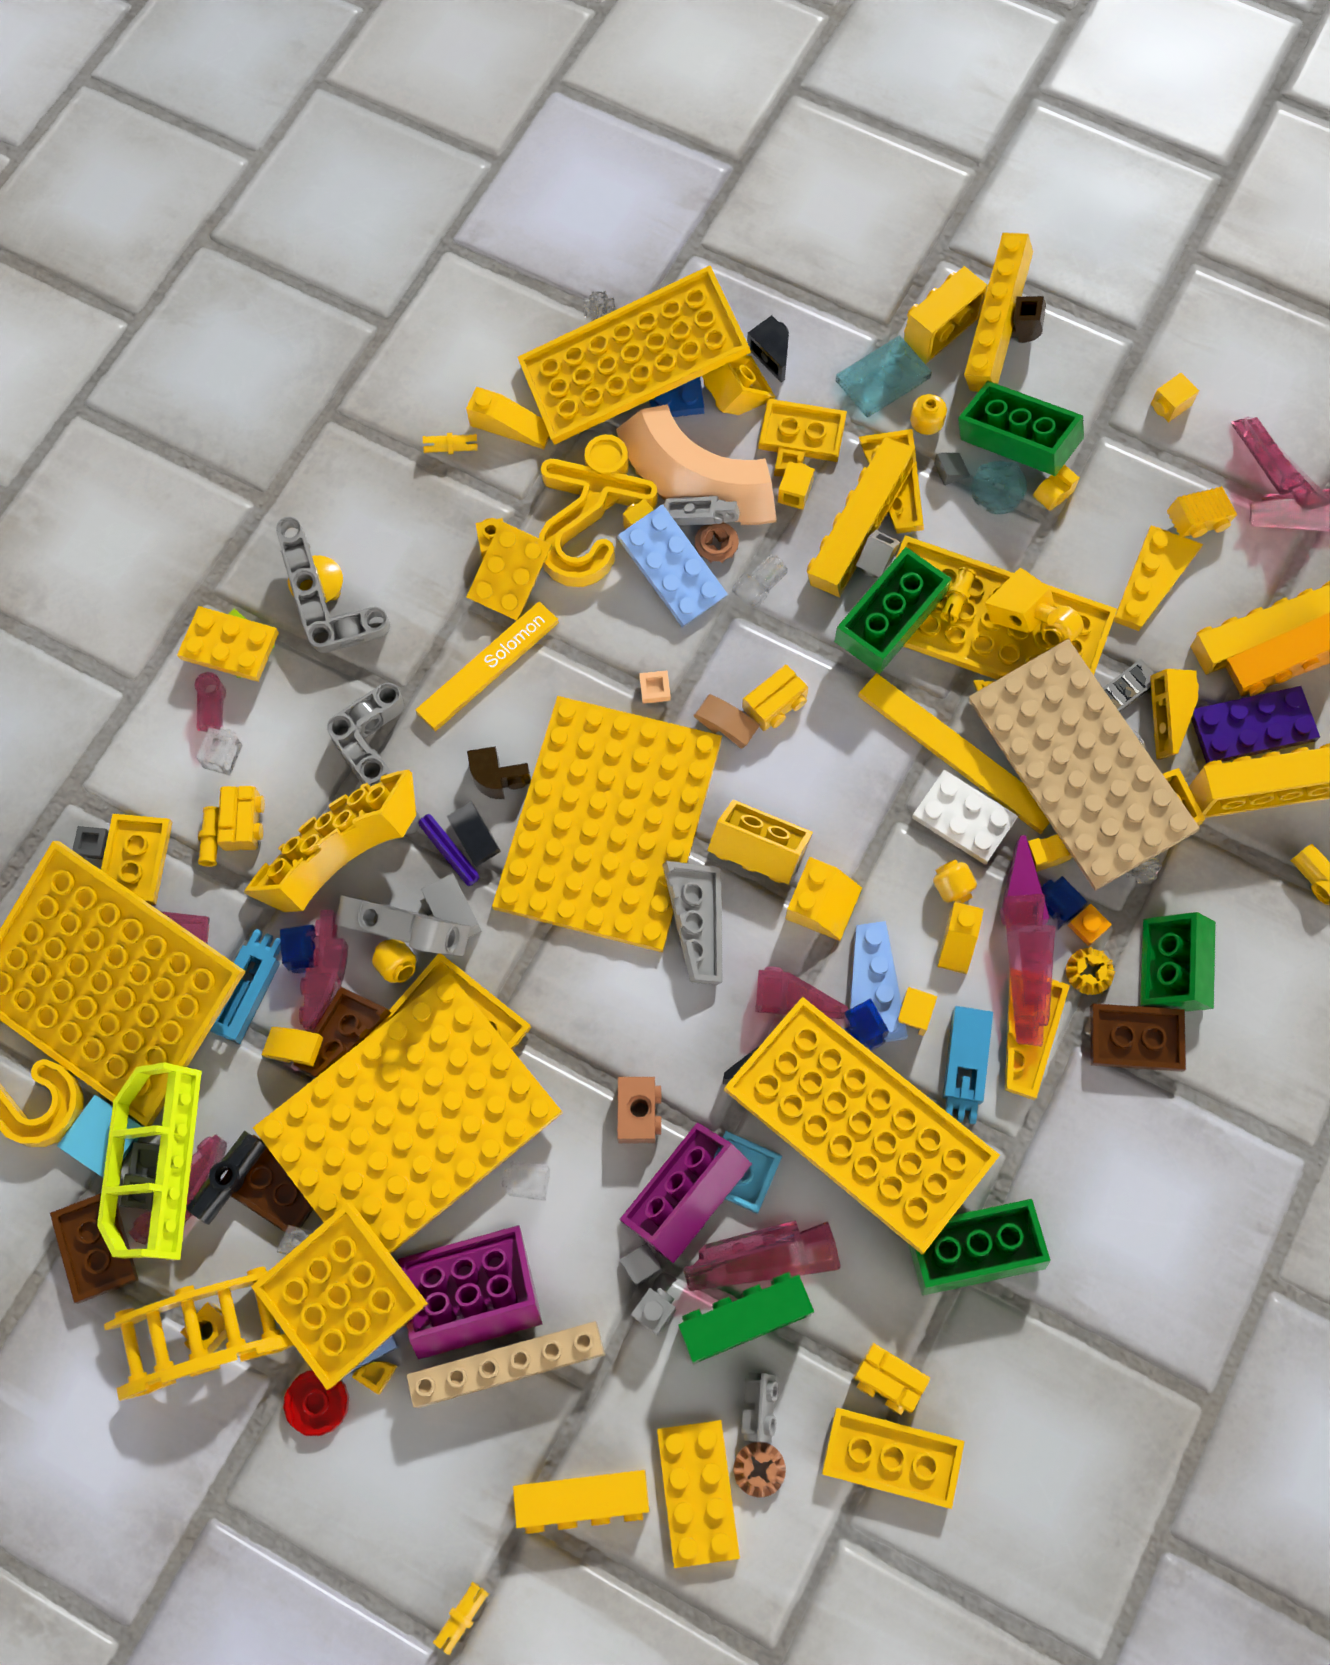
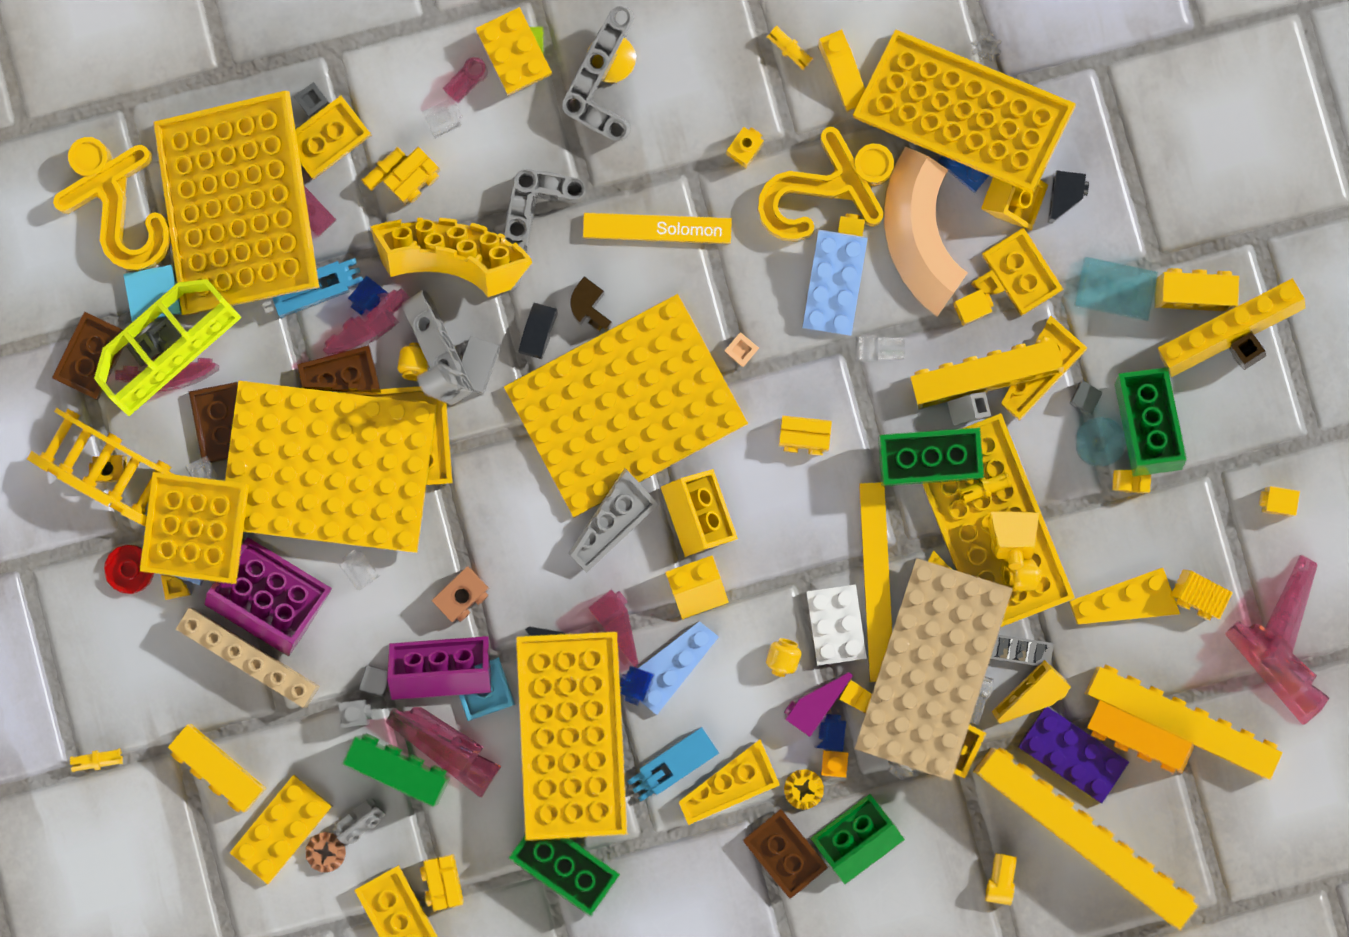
camera: 45 degrees right, 15 degrees up
(213, 1194) = (182, 397): black piece -> none
(292, 1045) = (306, 353): yellow slope -> none
(448, 850) = (514, 324): dark purple axle -> none
(509, 570) = (731, 181): yellow plate -> none
(701, 510) = (891, 261): light grey hinge -> none
(724, 534) = (880, 281): nougat gear -> none
(729, 720) = (761, 417): medium nougat slope -> none
(917, 1009) = (676, 706): yellow panel -> none
(928, 414) = (1103, 354): yellow head -> none
(960, 937) = (749, 692): yellow slope -> none
(1030, 965) = (766, 751): clear pink wedge -> none

